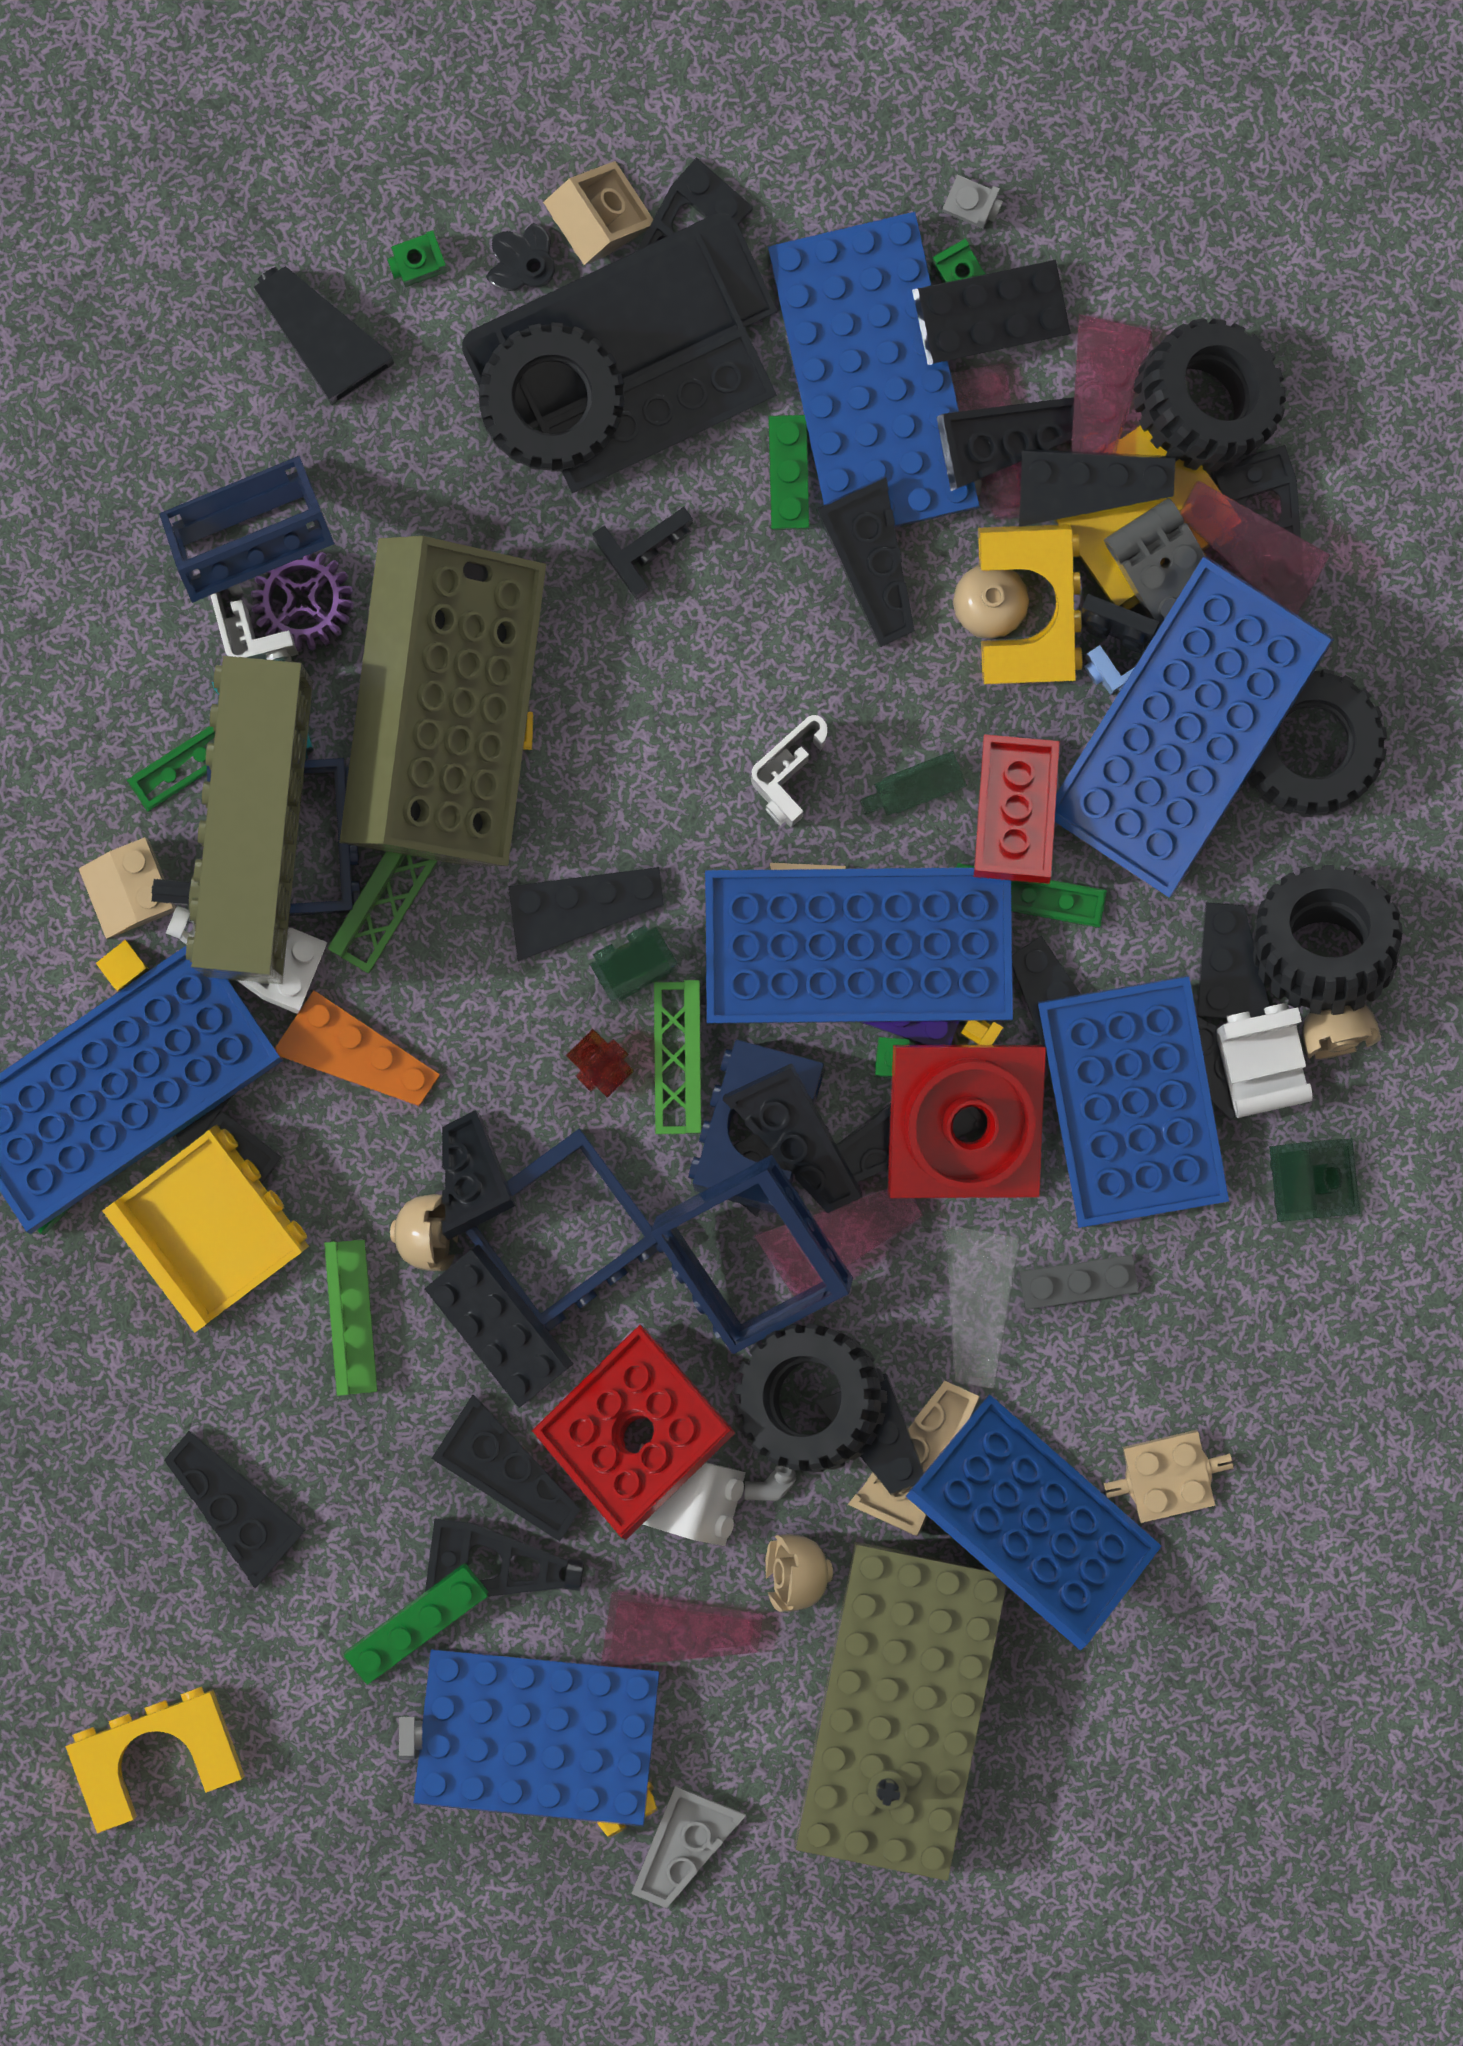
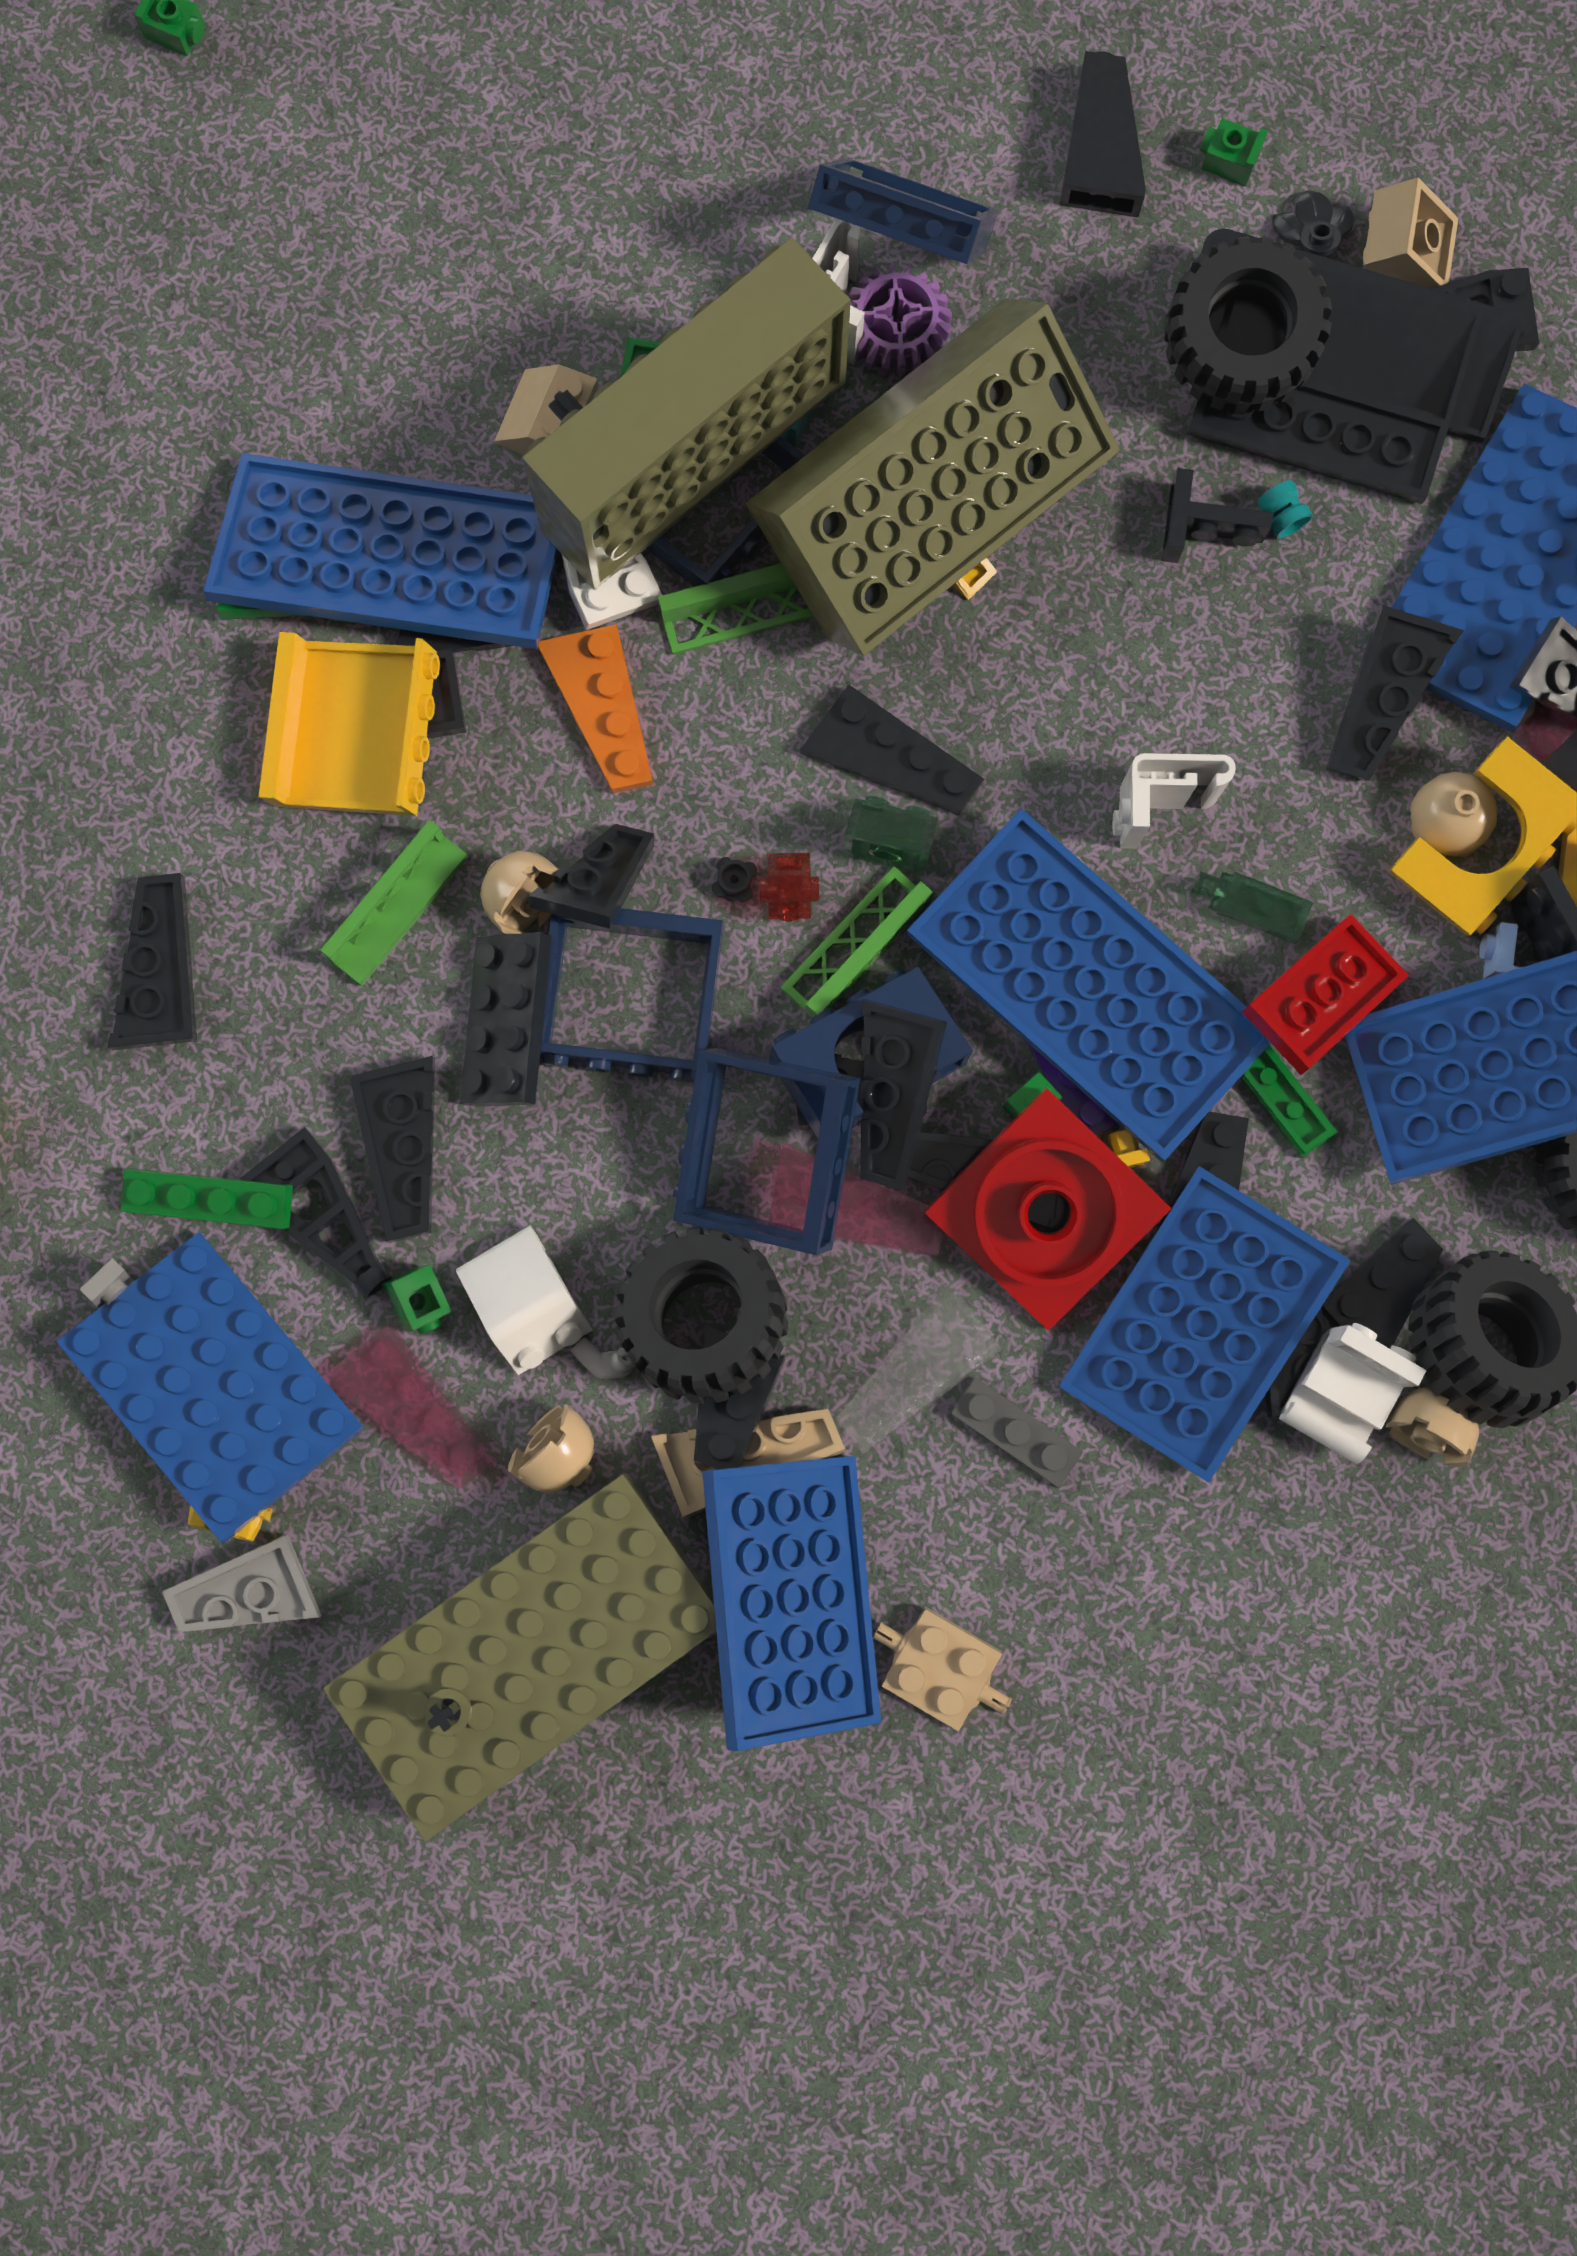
camera: 45 degrees right, 5 degrees down
(122, 966) = (486, 470): yellow slope -> none
(567, 1092) = (726, 870): none -> black plate
(591, 1422) = (502, 1170): red piece -> none
(626, 1551) = (425, 1284): none -> green brick
(680, 486) = (1288, 512): none -> teal wheel
(788, 472) = (1377, 570): green plate -> none
(1314, 1180) = (1296, 1532): clear green slope -> none

